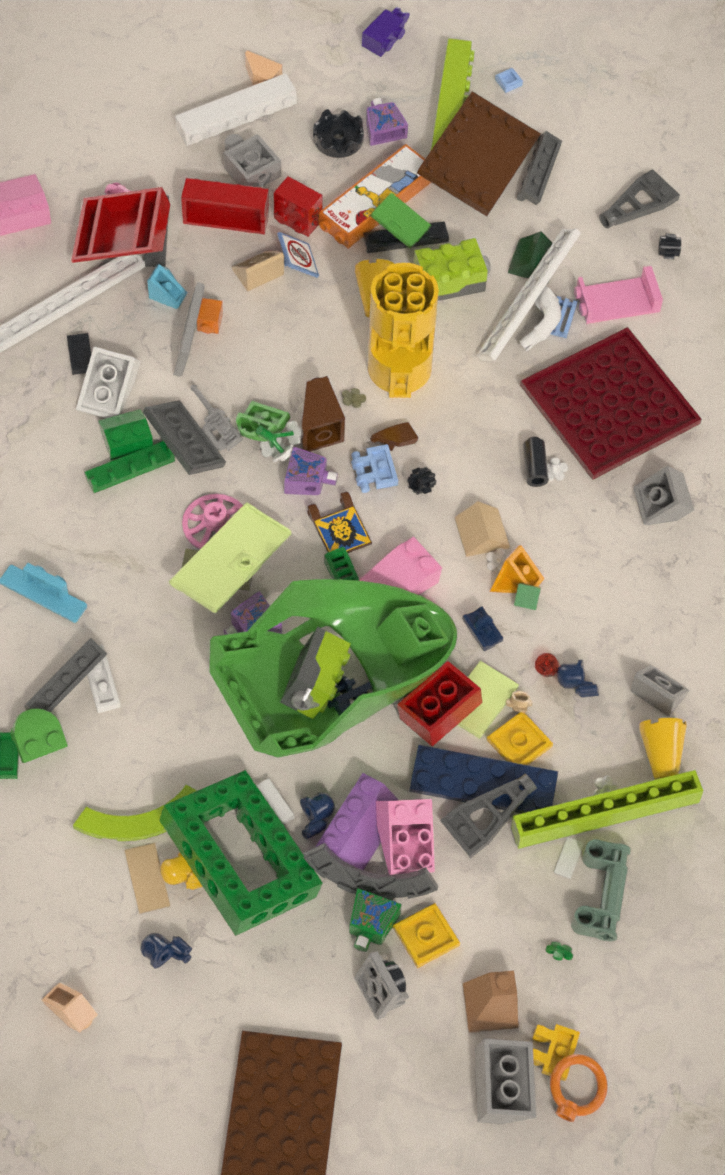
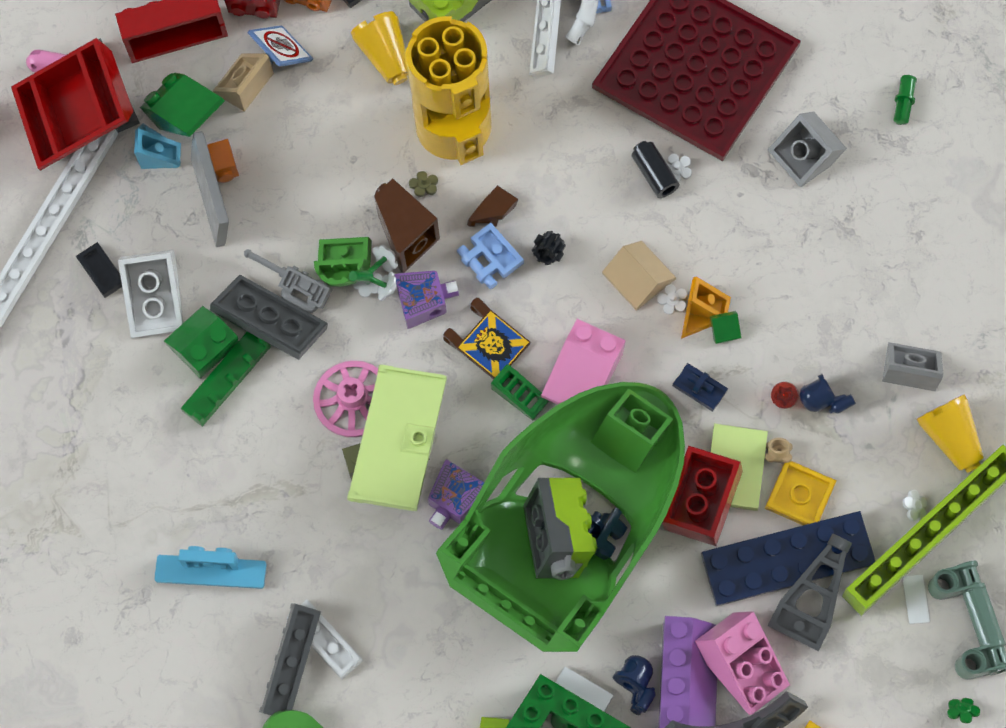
camera: 20 degrees left, 10 degrees up
(199, 261) = (180, 105): none -> green slope

